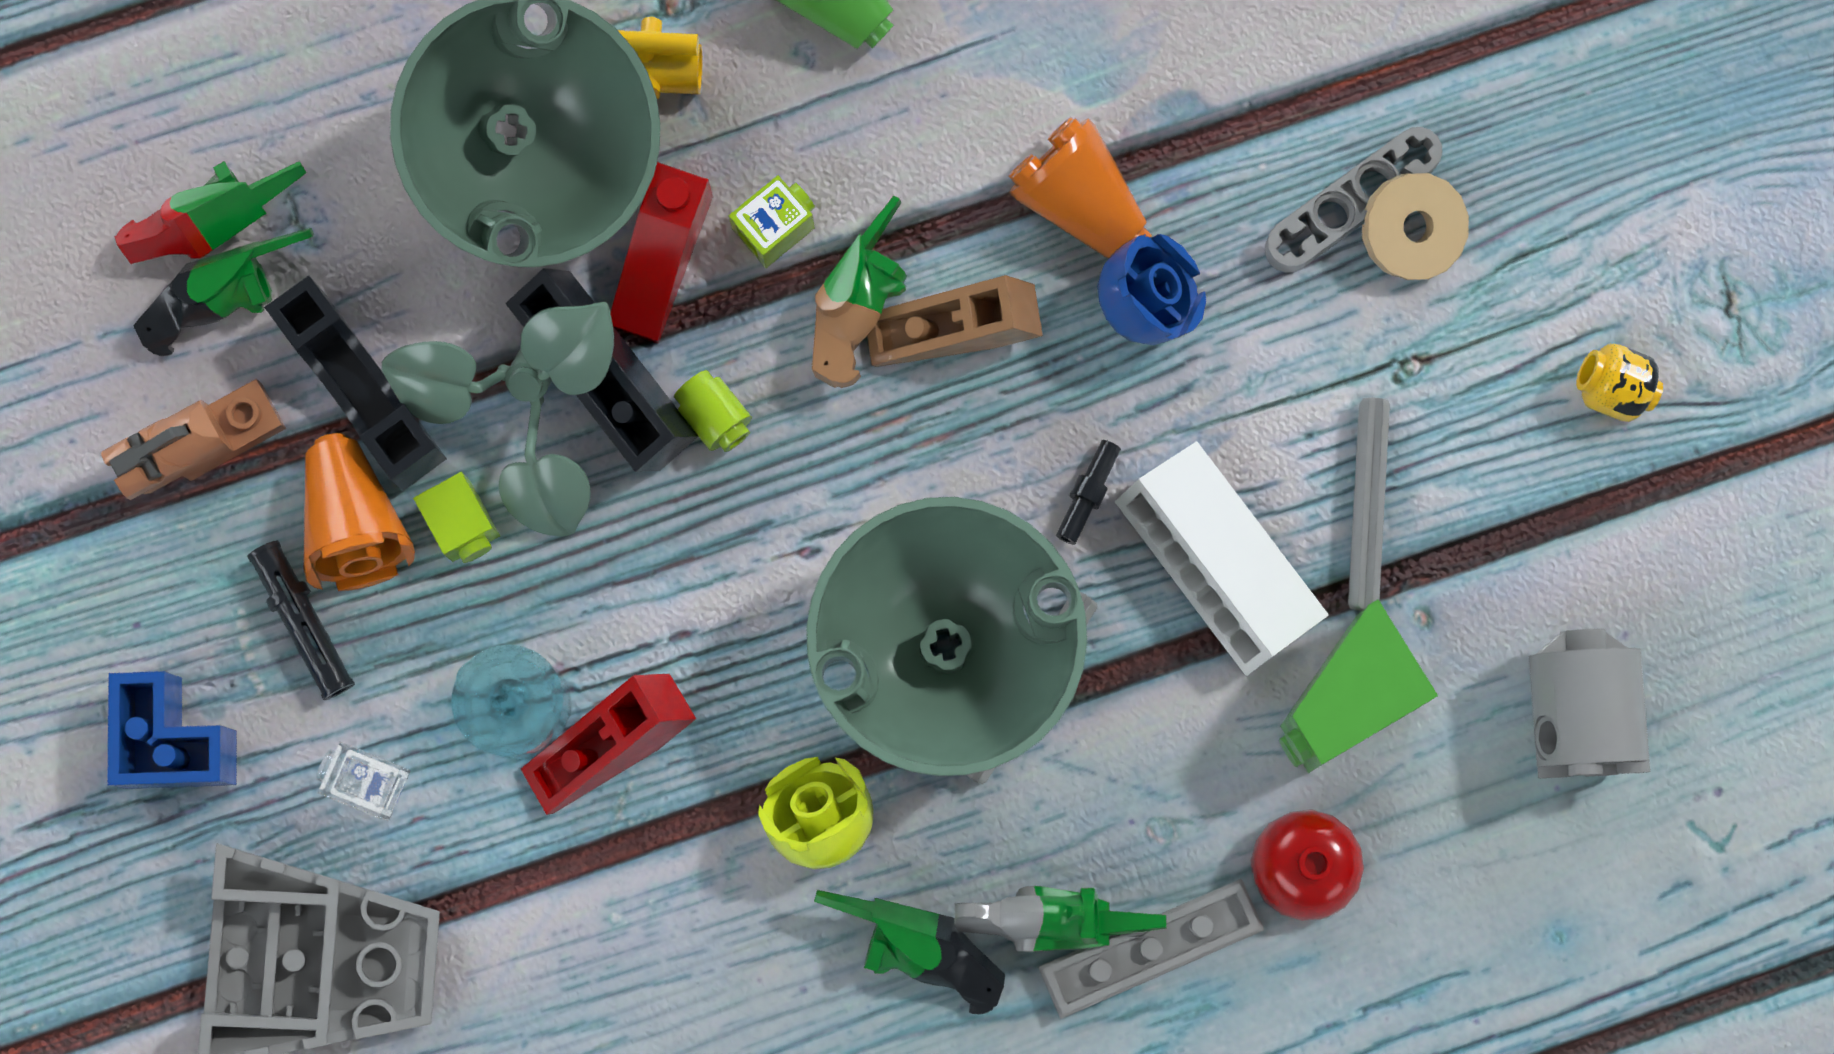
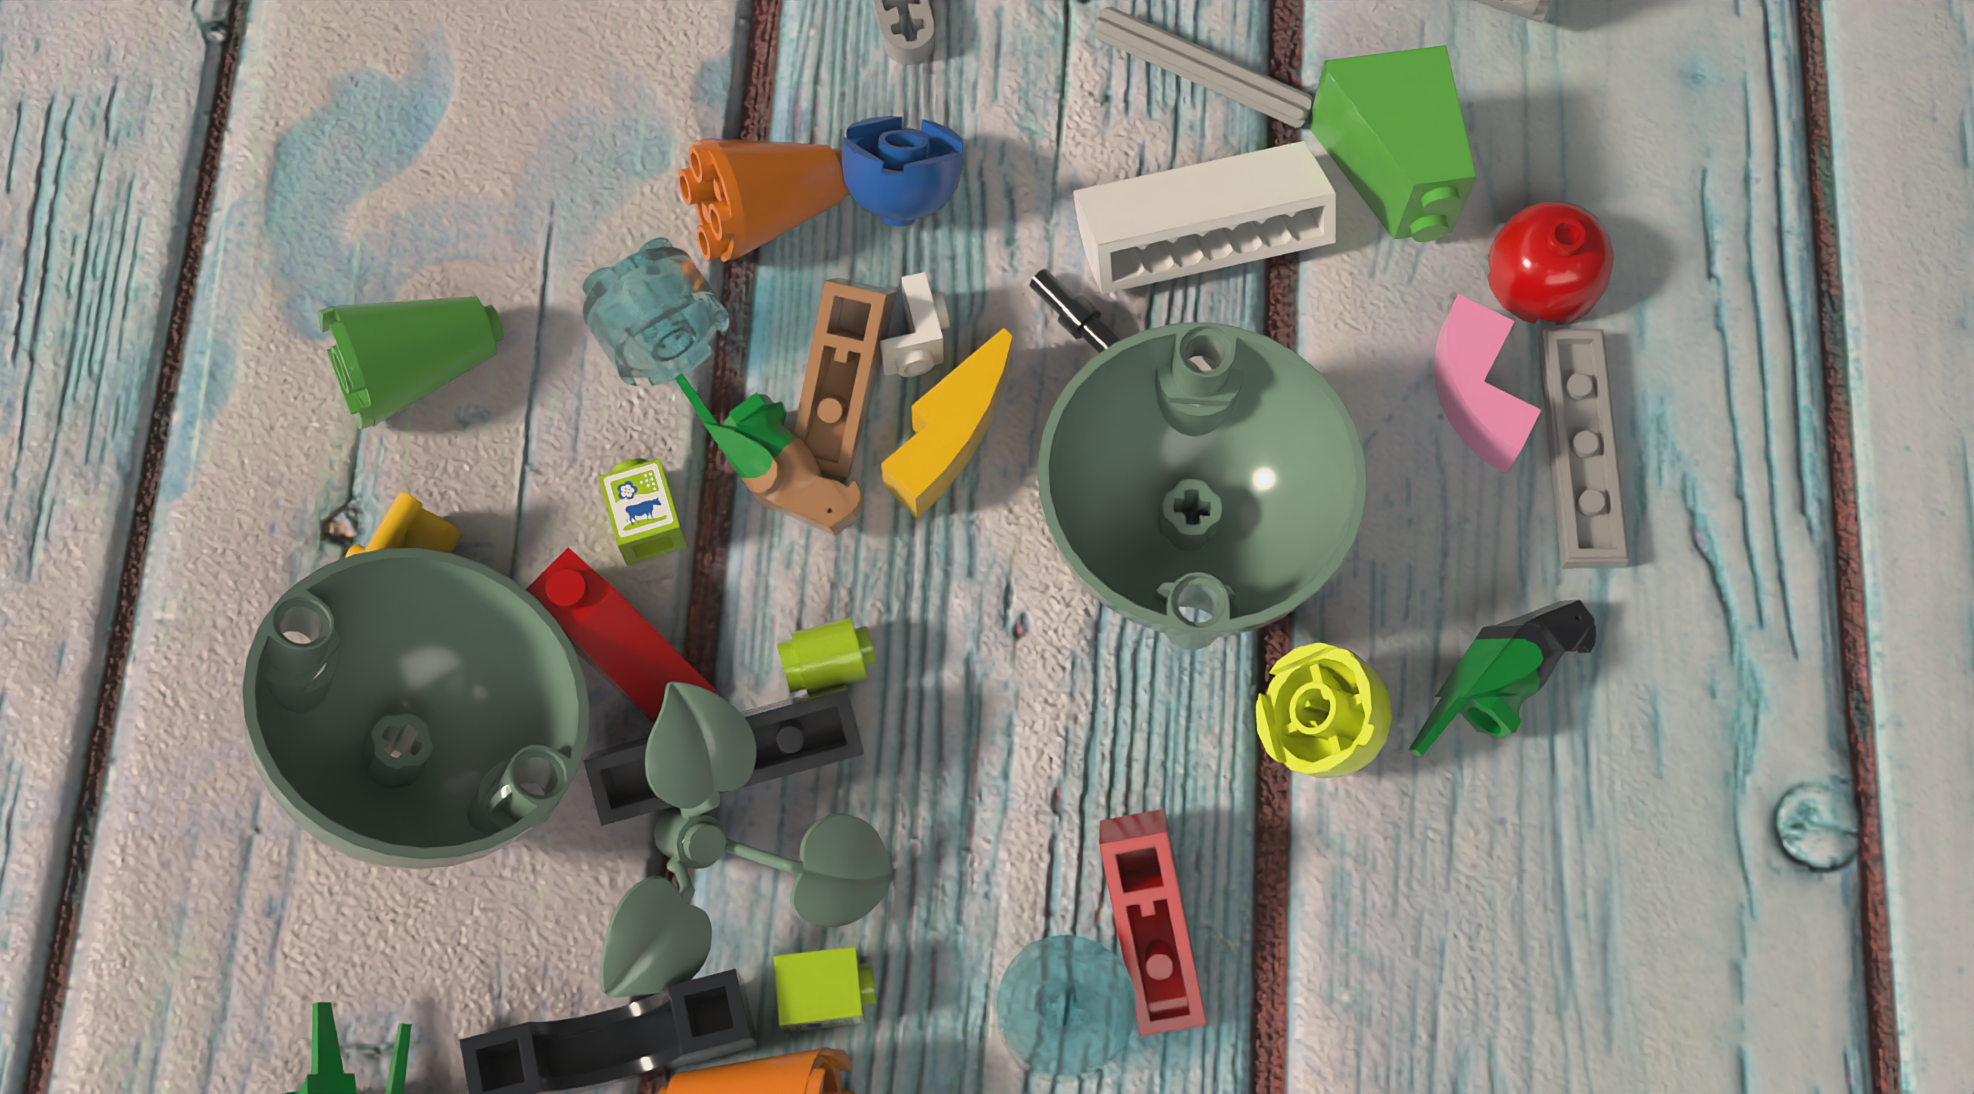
camera: 70 degrees left, 10 degrees down
(933, 154) = (653, 313): none -> clear light blue brick
(945, 429) = (948, 427): none -> yellow slope
(1029, 369) = (926, 316): none -> white bracket
(1053, 919) = (1525, 522): animal -> none
(1186, 822) = (1481, 414): none -> bright pink brick

